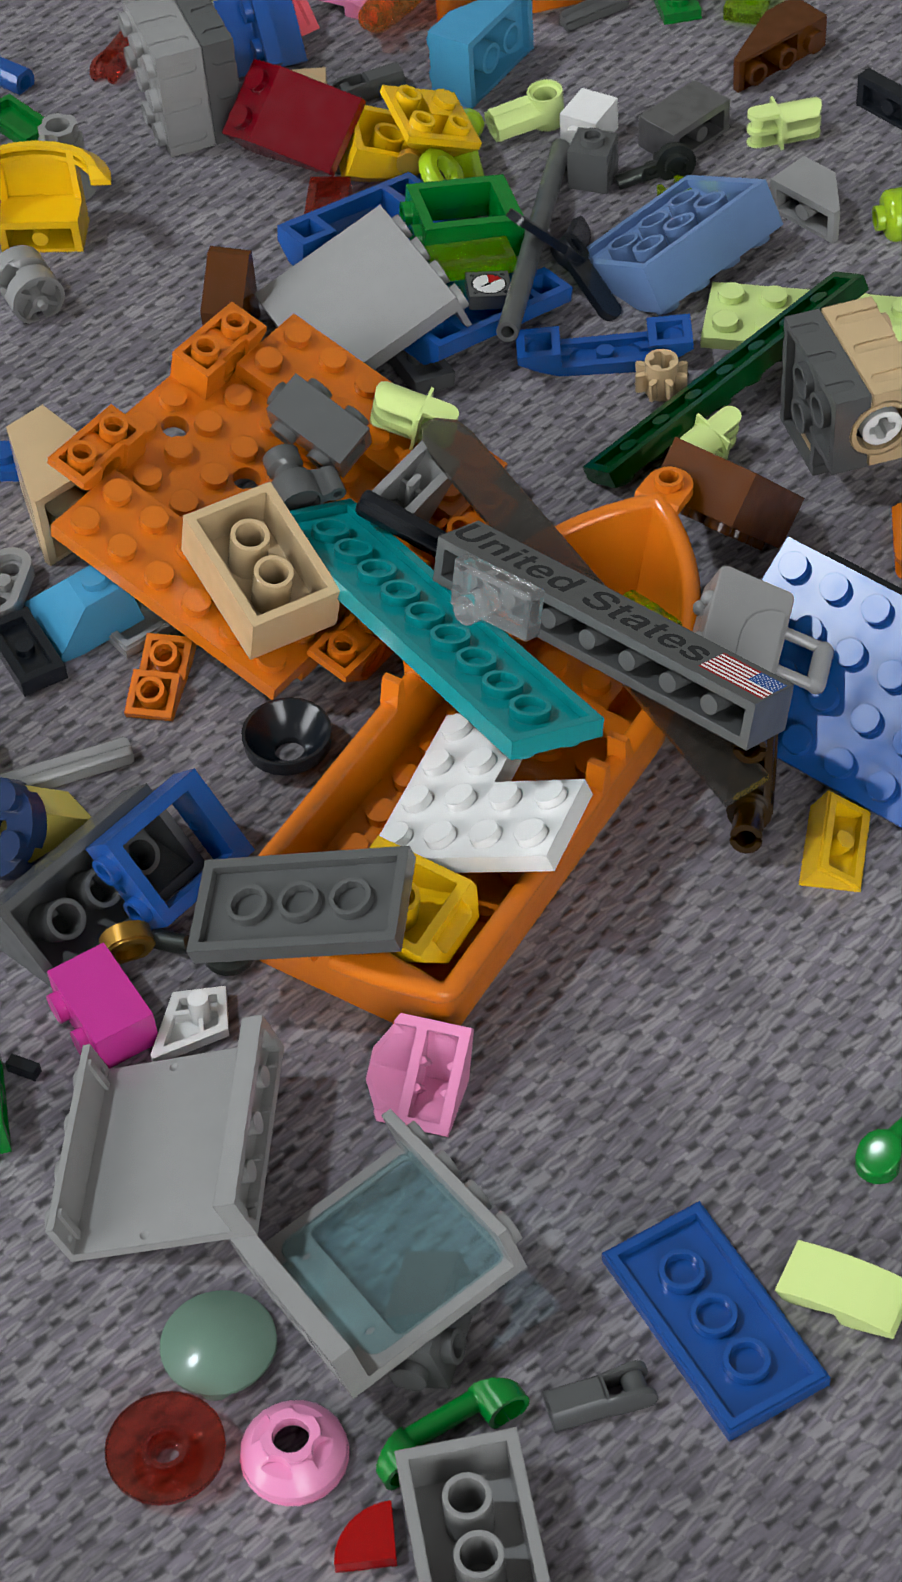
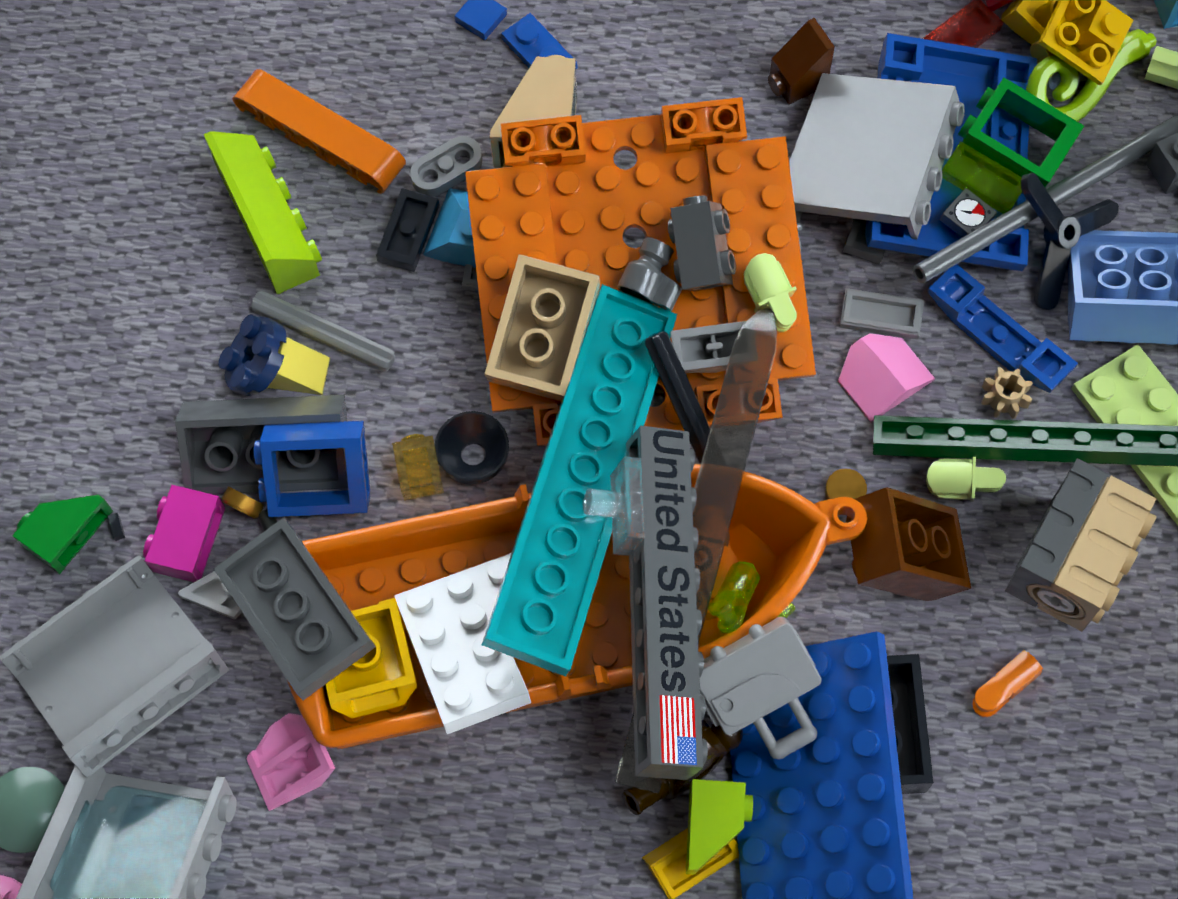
camera: 45 degrees right, 20 degrees up
(161, 678) = (453, 329): orange slope -> none
(256, 788) = (417, 466): none -> clear yellow brick
(502, 408) = (881, 313): none -> light grey tile
(550, 444) = (882, 374): none -> bright pink slope
(824, 783) = (714, 819): none -> lime slope

